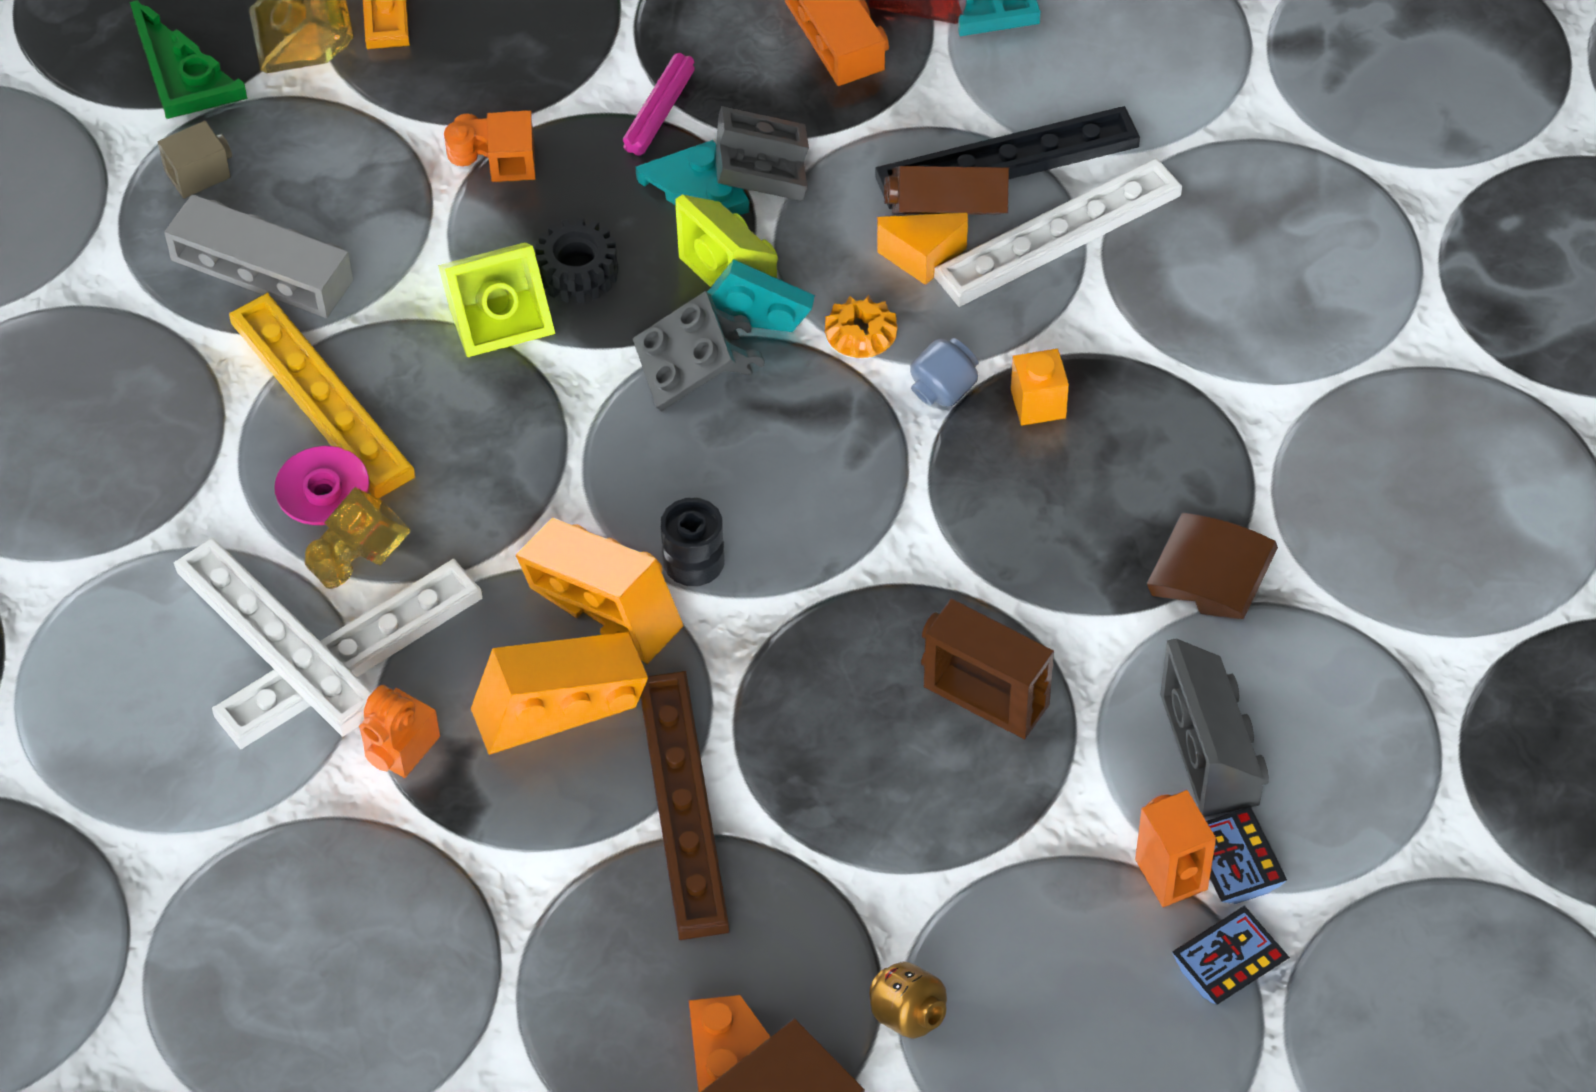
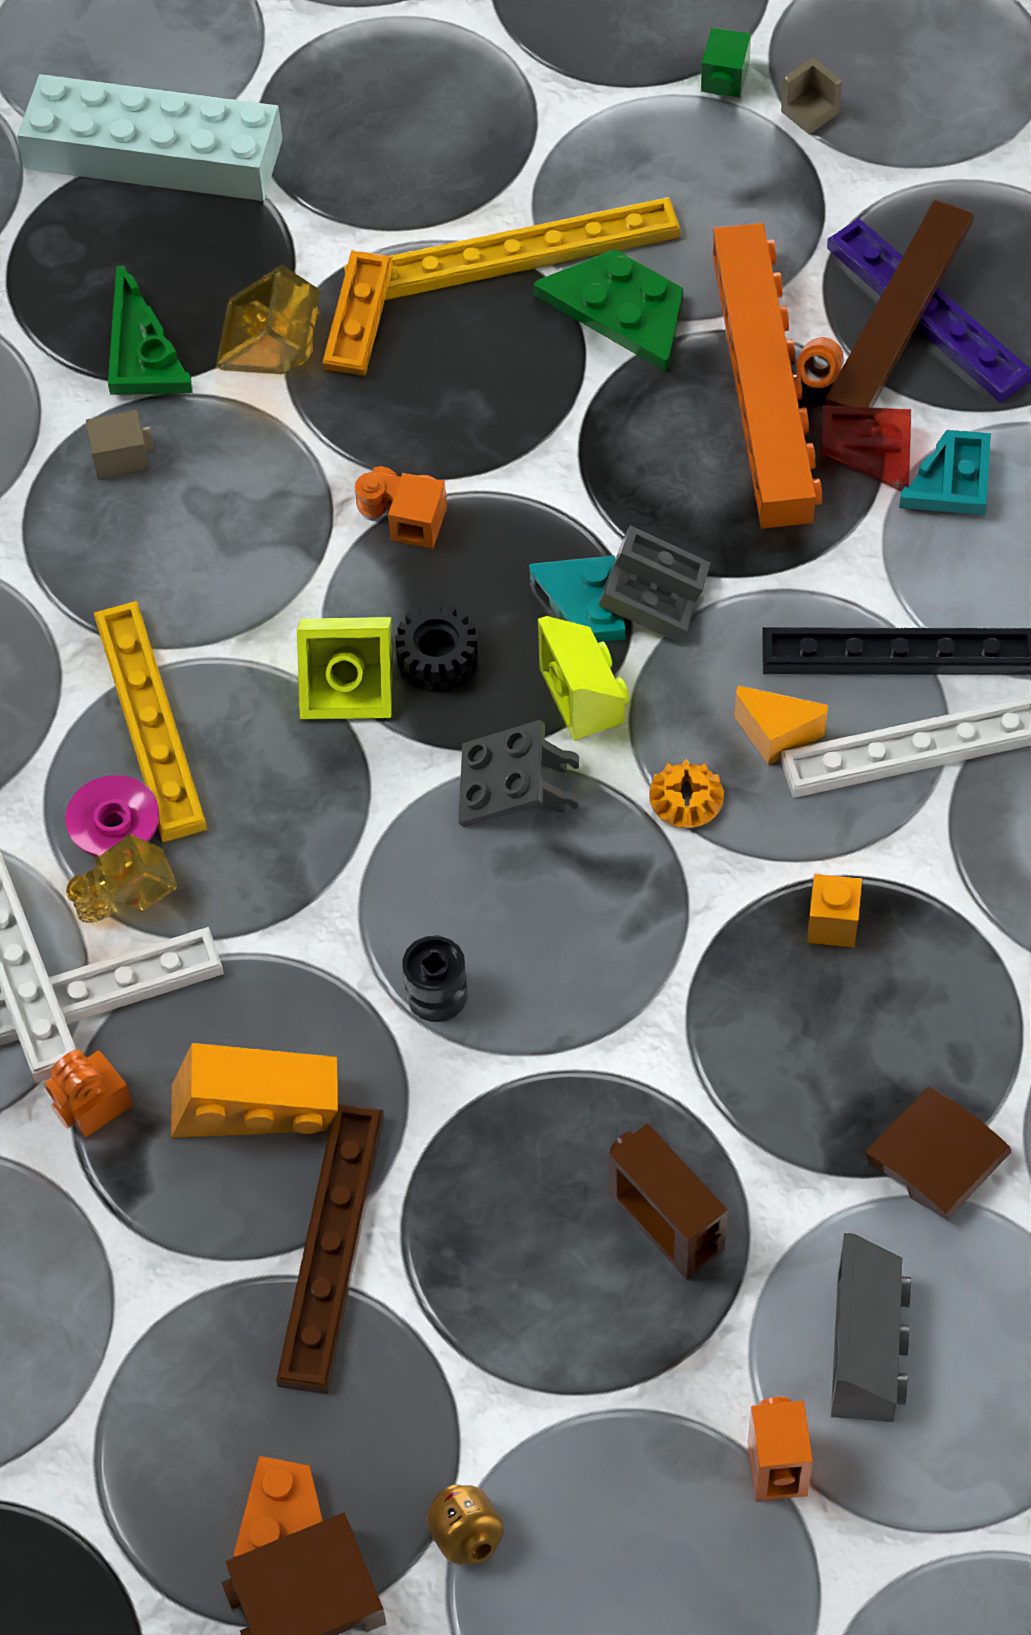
camera: 20 degrees right, 5 degrees up
(259, 255) = (142, 561): light grey brick -> none
(604, 581) = (335, 998): light orange wedge -> none
(658, 104) = (577, 502): dark pink axle -> none
(760, 298) = (593, 739): teal wing -> none
(944, 372) = (746, 868): sand blue head -> none
(947, 190) = (814, 677): reddish brown window -> none
(1229, 956) = (800, 1576): piece -> none
(1242, 858) = (847, 1471): piece -> none

